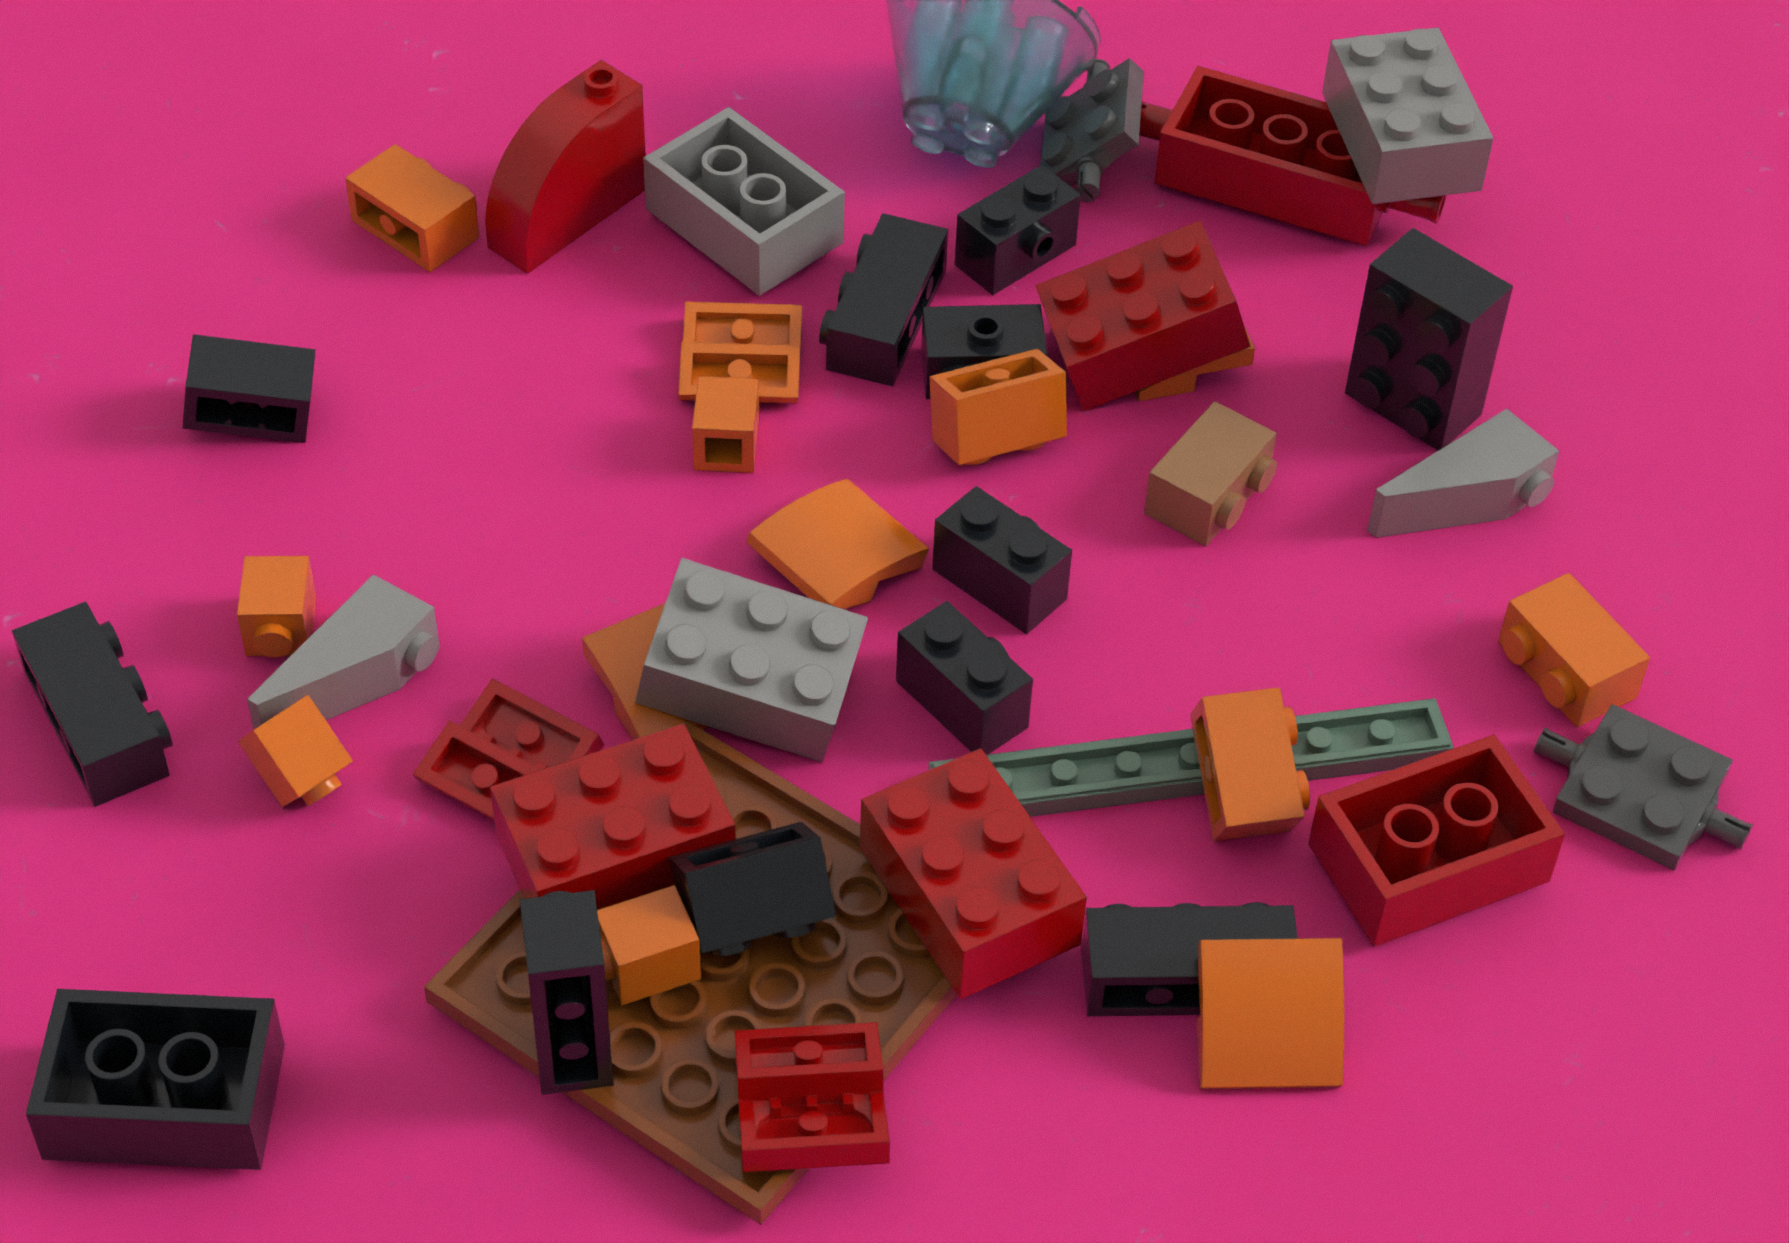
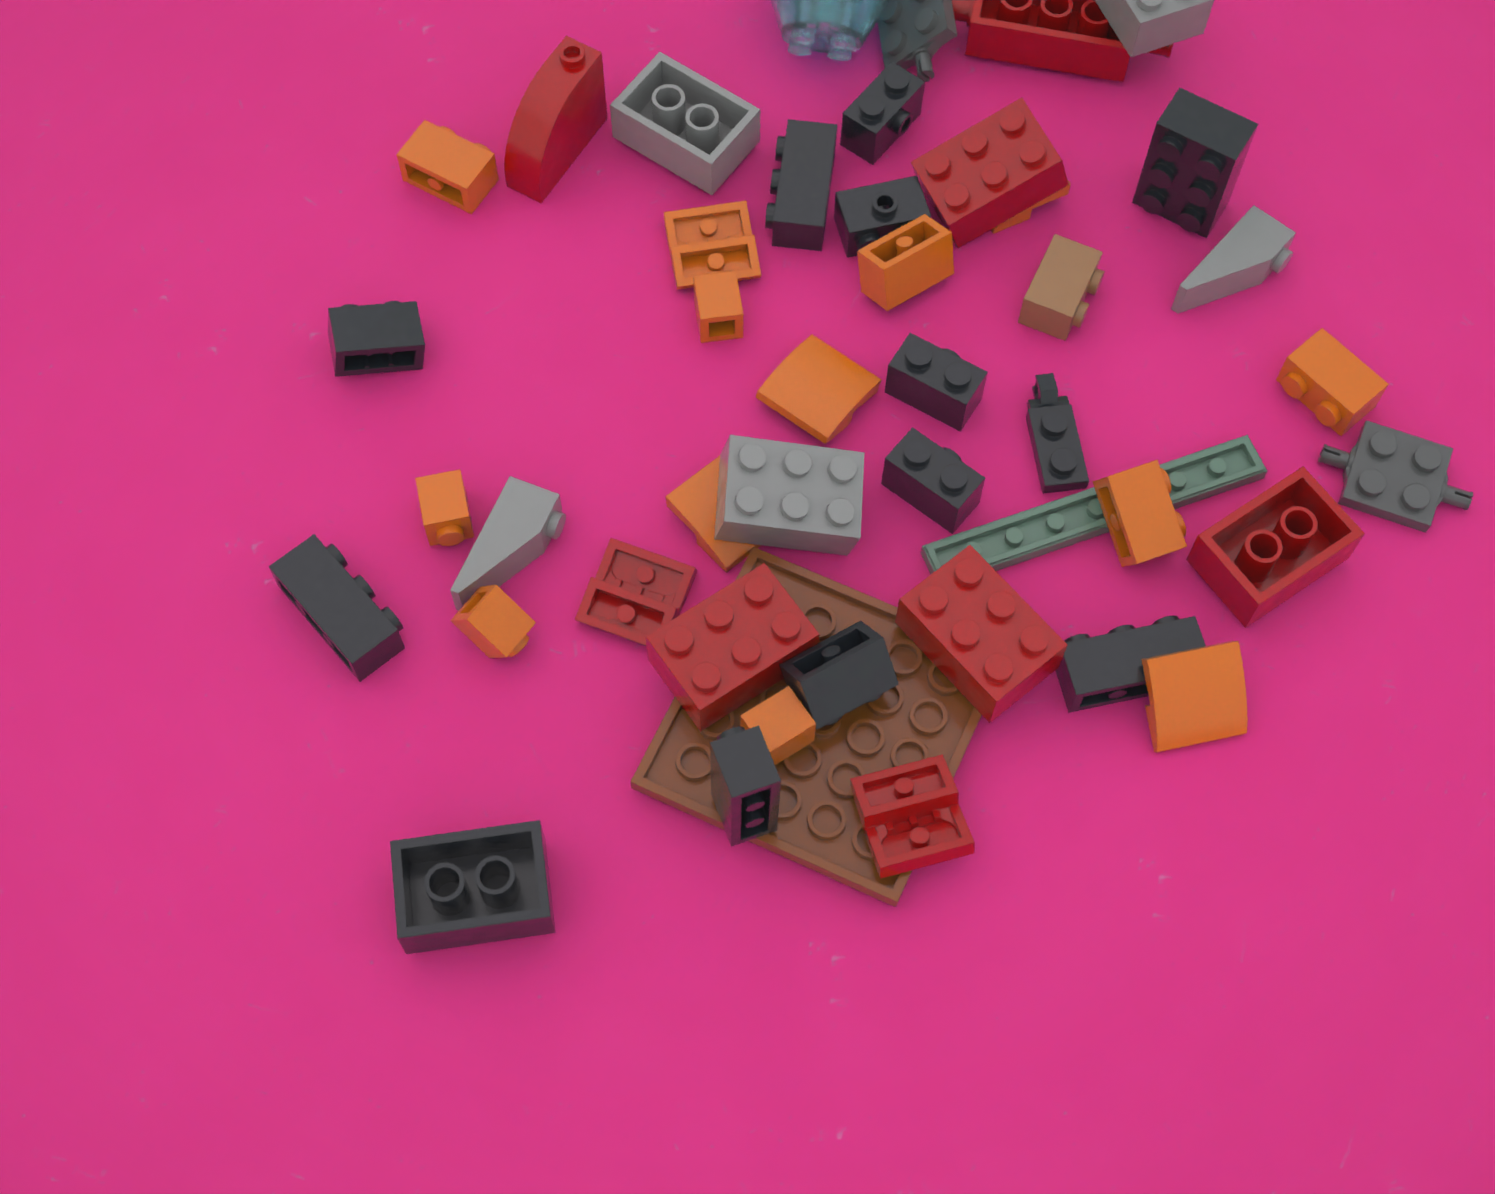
camera: 10 degrees left, 15 degrees up
(1156, 661) = (1055, 438): none -> black hinge

